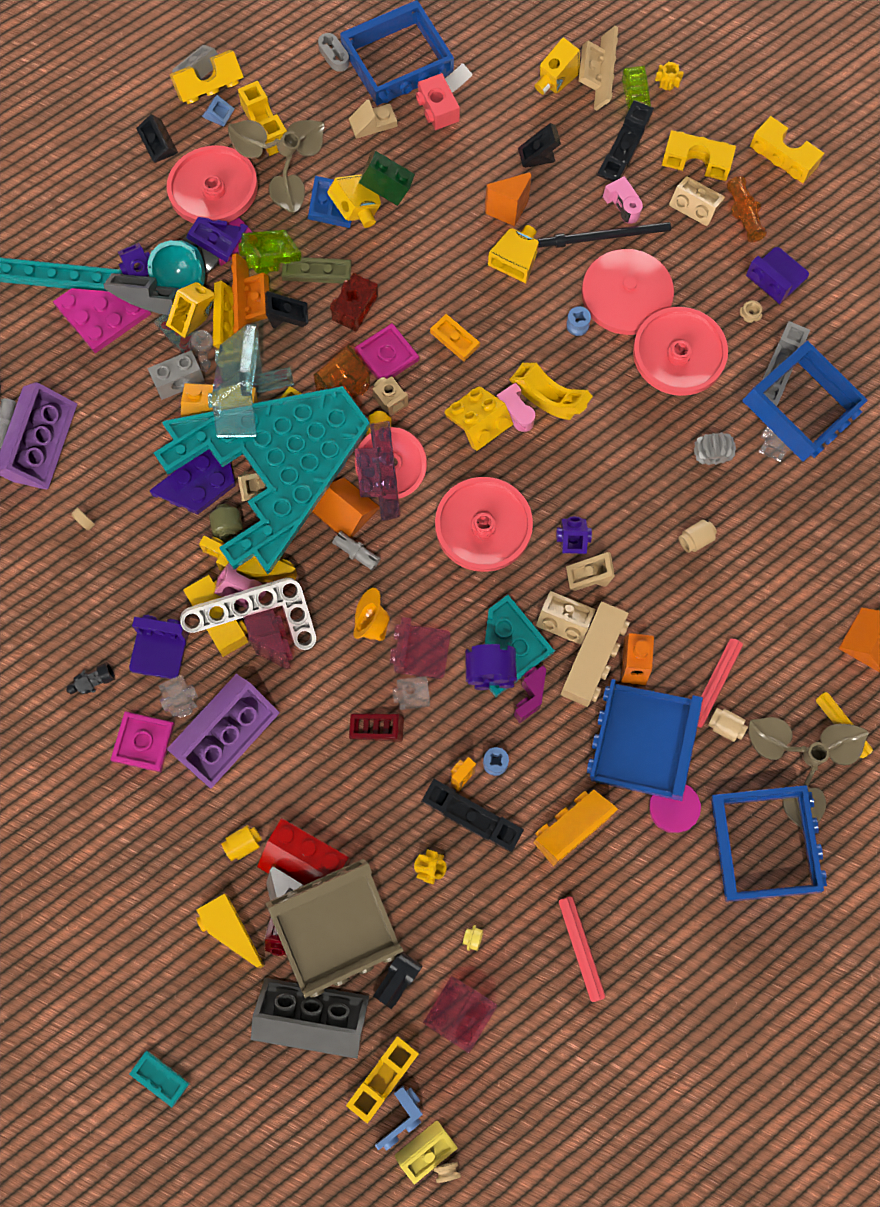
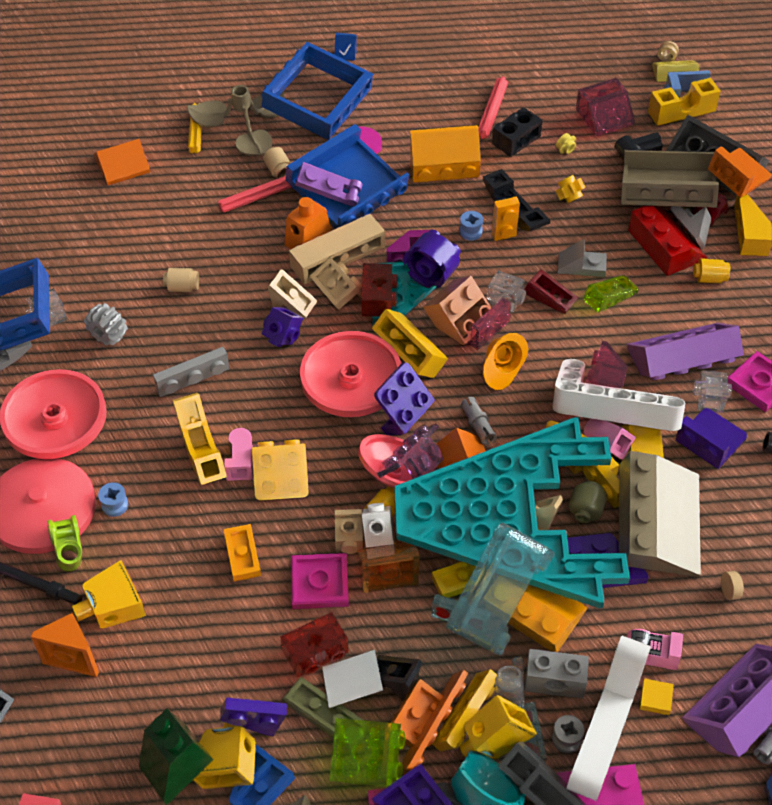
camera: 145 degrees left, 20 degrees down
(101, 406) = (656, 696): none -> yellow tile
(118, 436) = (664, 649): none -> bright pink leg
(122, 379) = (609, 718): none -> white beam
(152, 346) = (566, 741): none -> light grey wheel
(161, 535) = (659, 515): none -> dark tan slope
(266, 979) = (738, 170): none -> orange bracket
(312, 294) = (352, 678): none -> white sticker
(324, 740) = (608, 293): none -> clear neon green slope
(352, 218) = (254, 715): none -> dark purple wing
(368, 399) = (378, 525): none -> white brick
(369, 783) = (578, 262): none -> light grey slope
(418, 514) = (403, 400): none -> dark purple bracket
(437, 641) = (457, 308): none -> nougat slope
(457, 583) = (410, 343): none -> yellow brick
(518, 601) = (377, 289): none -> clear red brick
(525, 918) = (516, 131): none -> black brick
(578, 264) = (66, 537): none -> lime piece
(611, 454) = (191, 371): none -> light grey plate
(653, 711) = (328, 184): none -> medium lavender plate
(794, 940) = (346, 46): none -> blue slope

